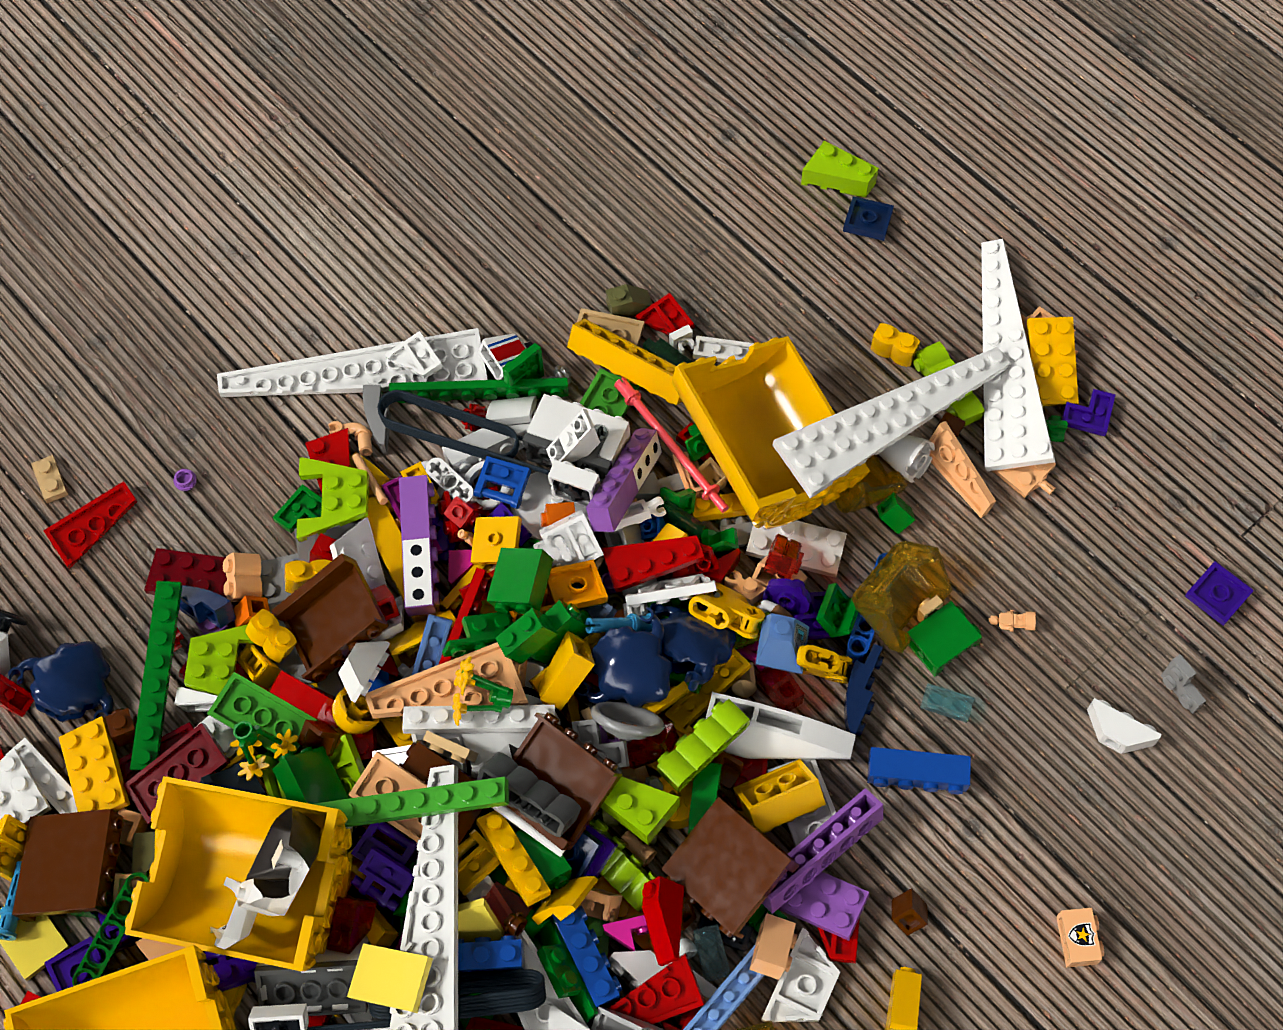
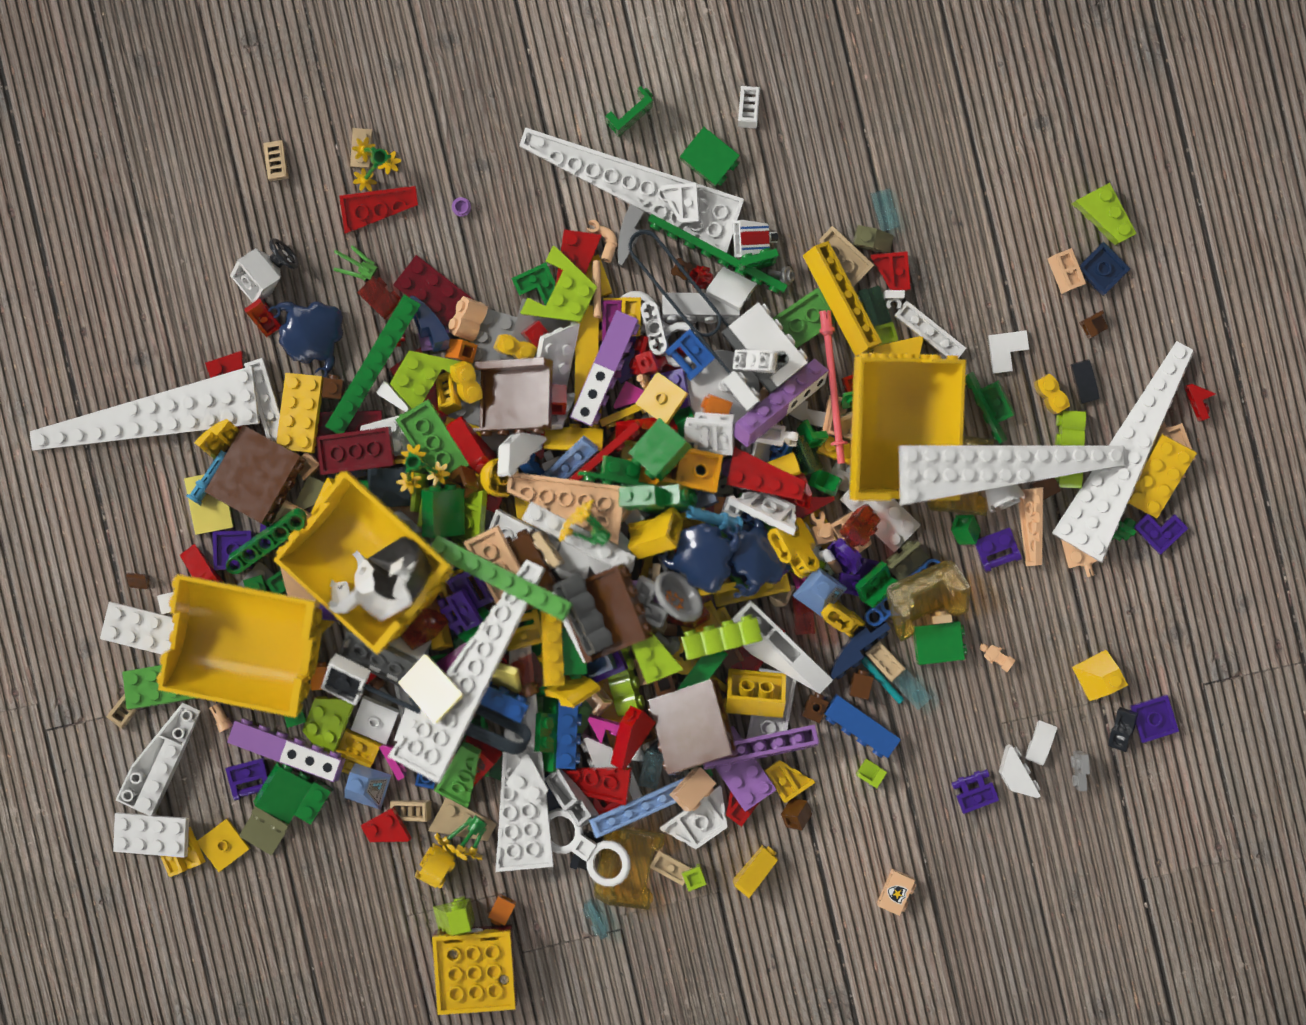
camera: 30 degrees right, 25 degrees up
(67, 464) = (378, 157): none -> yellow plant
(106, 588) = (366, 268): none -> bright green plant
(131, 608) = (379, 297): none -> clear red brick
(315, 320) = (621, 125): none -> green panel
(422, 310) = (710, 157): none -> green brick
(438, 254) = (748, 119): none -> white slope
(448, 428) = (676, 271): none -> reddish brown plate
(624, 272) = (884, 209): none -> clear light blue slope
(668, 841) = (666, 685): none -> reddish brown brick
(818, 332) = (1001, 346): none -> white tile
(834, 235) = (1066, 270): none -> light nougat hinge
(844, 381) = (993, 404): none -> green bracket
(852, 569) = (907, 560): none -> olive bracket
(854, 778) = (815, 707): none -> reddish brown brick
(876, 878) = (787, 780): none -> yellow wing
(889, 727) = (860, 684): none -> reddish brown brick
(892, 268) = (1094, 324): none -> reddish brown panel
(899, 689) = (885, 661): none -> tan plate
(909, 712) = (882, 680): none -> teal bar
(920, 319) = (1085, 381): none -> black slope
(935, 512) = (995, 543): none -> dark purple plate
(963, 819) = (871, 773): none -> lime panel
(1036, 278) = (1196, 396): none -> red slope
(1094, 780) = (976, 797): none -> dark purple plate
(1122, 683) = (1041, 743): none -> white slope
(1132, 581) = (1099, 676): none -> yellow slope
(1195, 621) = (1123, 729): none -> black slope

